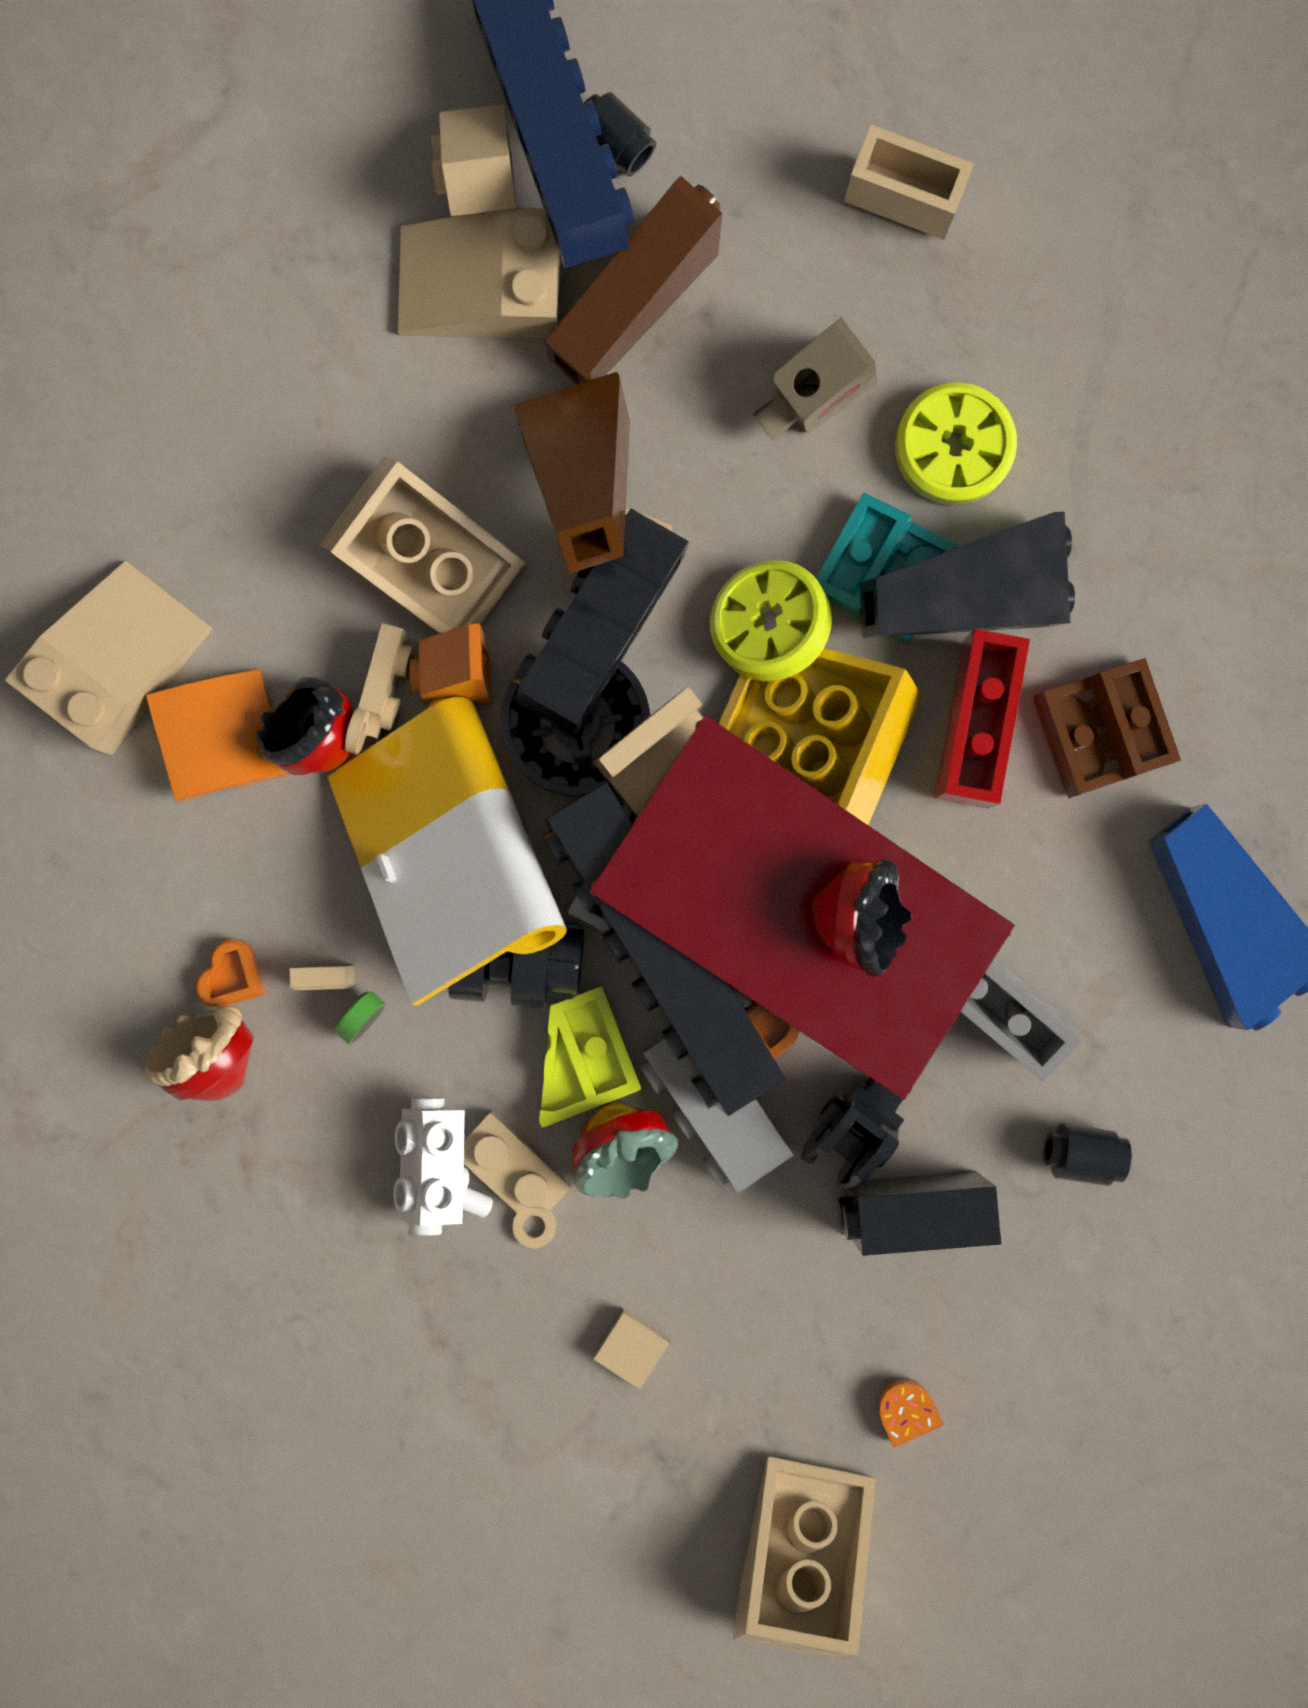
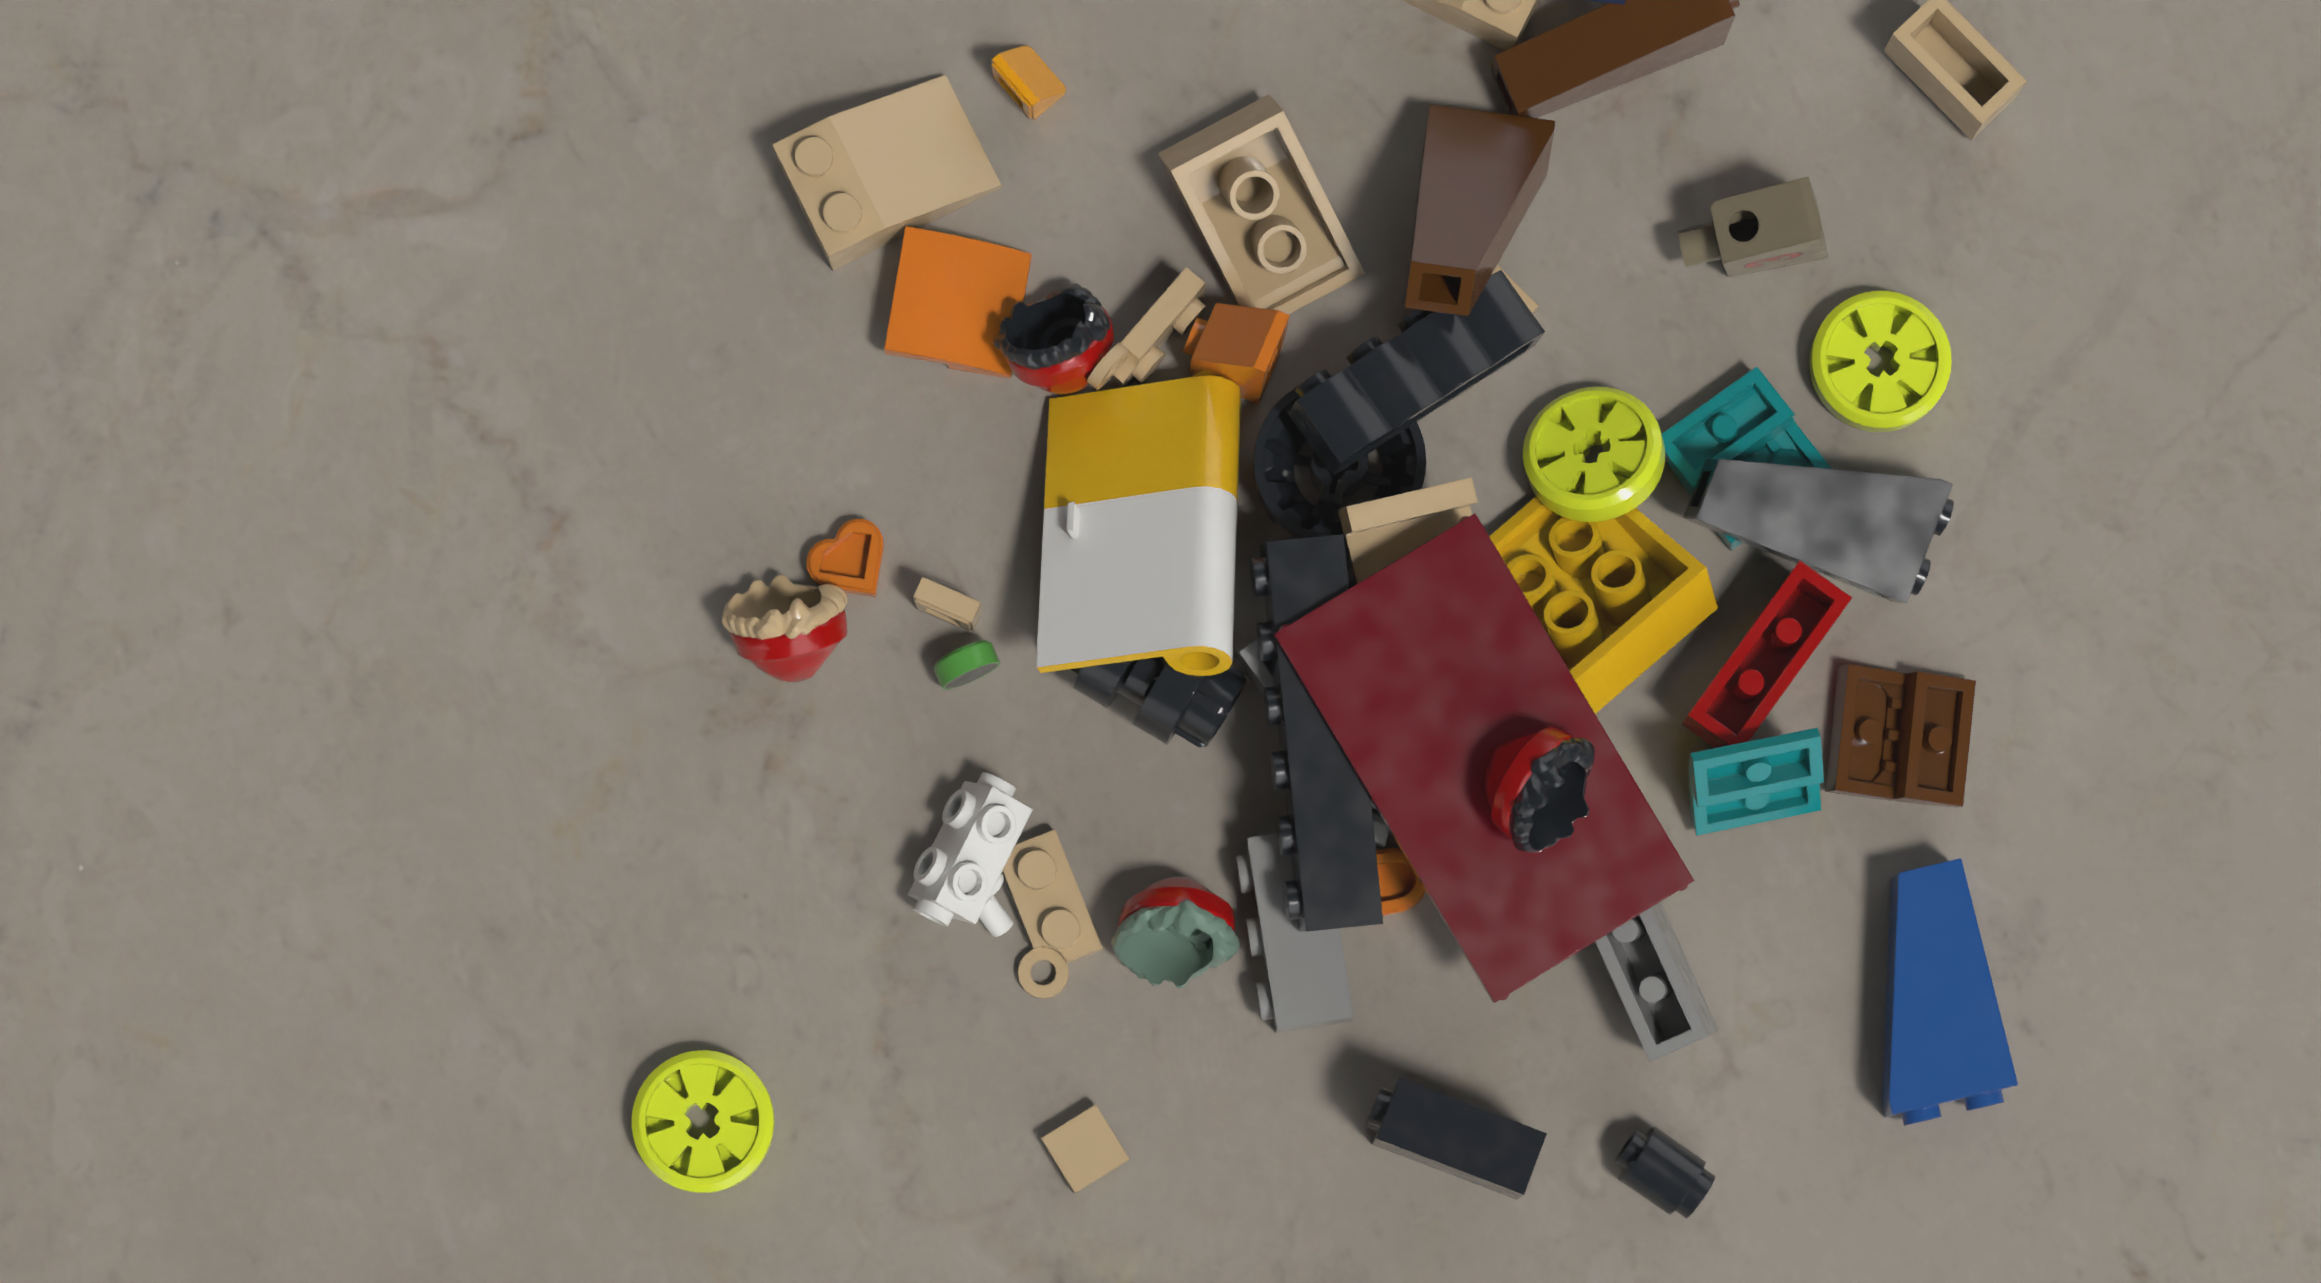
camera: 30 degrees right, 5 degrees down
(190, 534) = (1027, 80): none -> light orange slope
(294, 1487) = (662, 1122): none -> neon yellow wheel
(584, 1058) = (1180, 819): neon yellow wing -> none
(859, 1129) = (1435, 1023): black hinge -> none
(1020, 819) = (1755, 781): none -> teal slope

